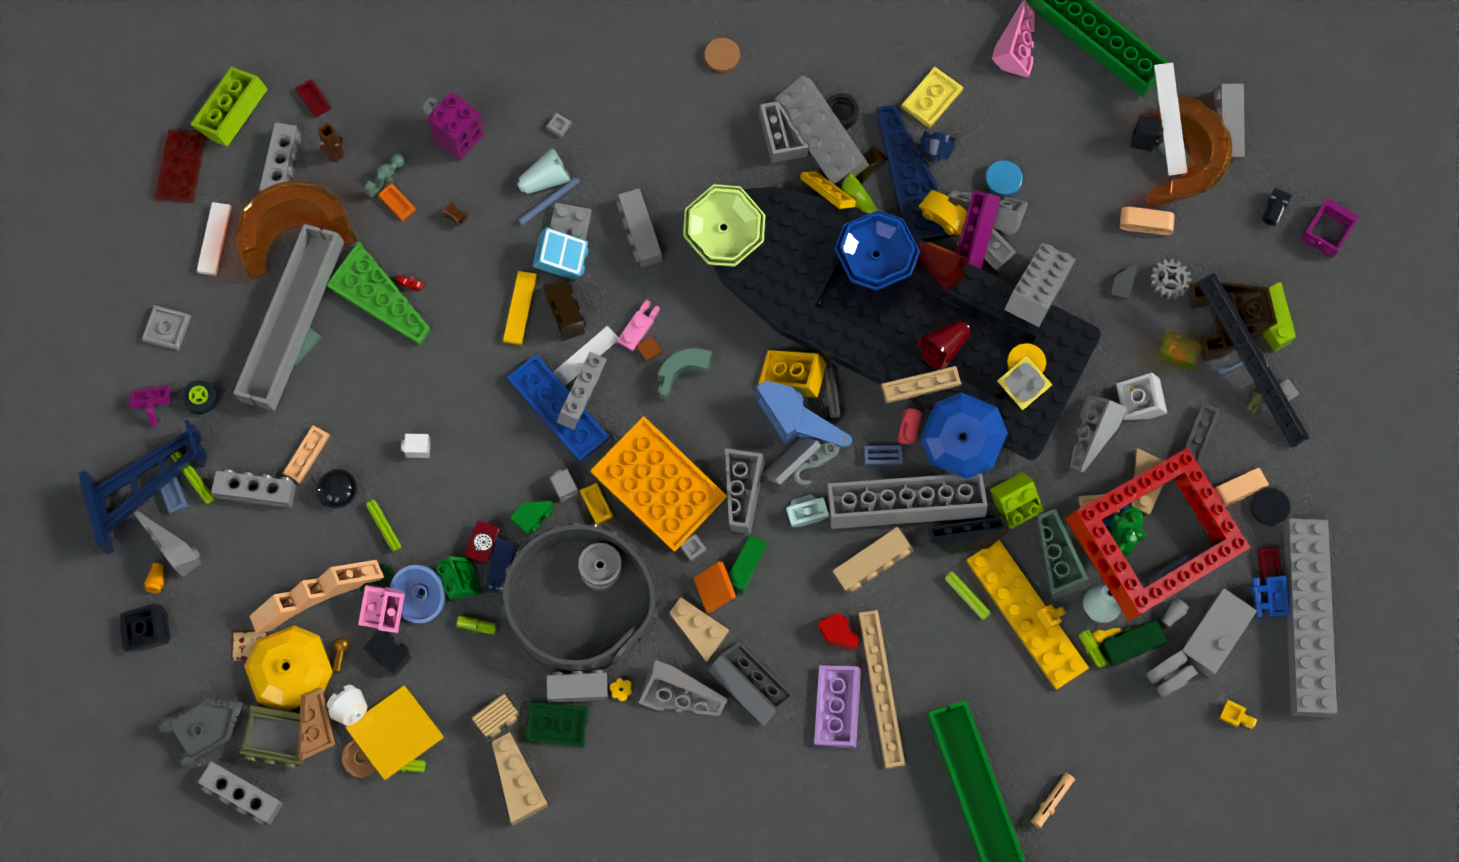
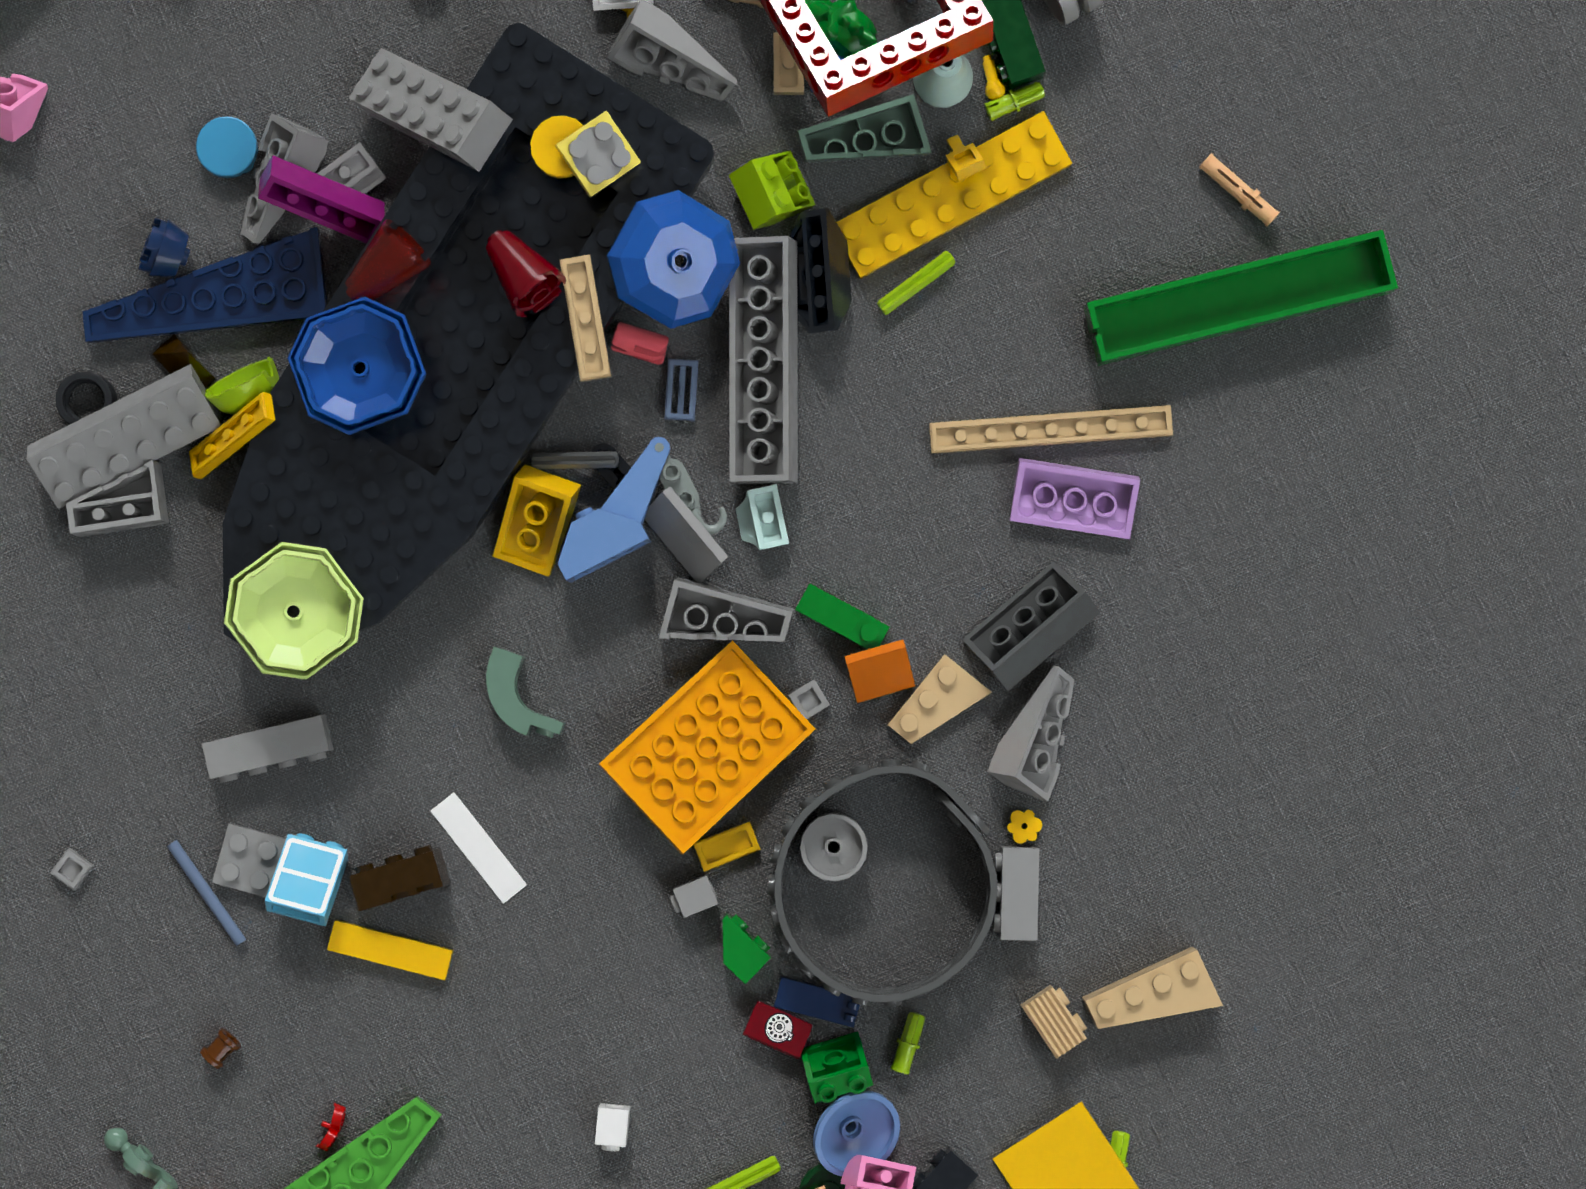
camera: 80 degrees left, 15 degrees up
(396, 202) = (189, 1143): orange tile -> none
(454, 124) = (63, 1046): magenta piece -> none
(544, 174) = (161, 897): light aqua cone -> none
(547, 396) = (565, 897): blue plate -> none
(556, 724) = (1070, 927): dark green tile -> none
(581, 390) = (545, 858): light grey brick -> none
(638, 327) = (438, 761): bright pink hinge -> none
(649, 349) = (476, 746): dark orange tile -> none
(836, 632) = (961, 489): red slope -> none
(873, 560) = (854, 421): tan wedge -> none
(932, 97) = (71, 248): light yellow tile -> none
(940, 210) = (276, 261): yellow brick -> none

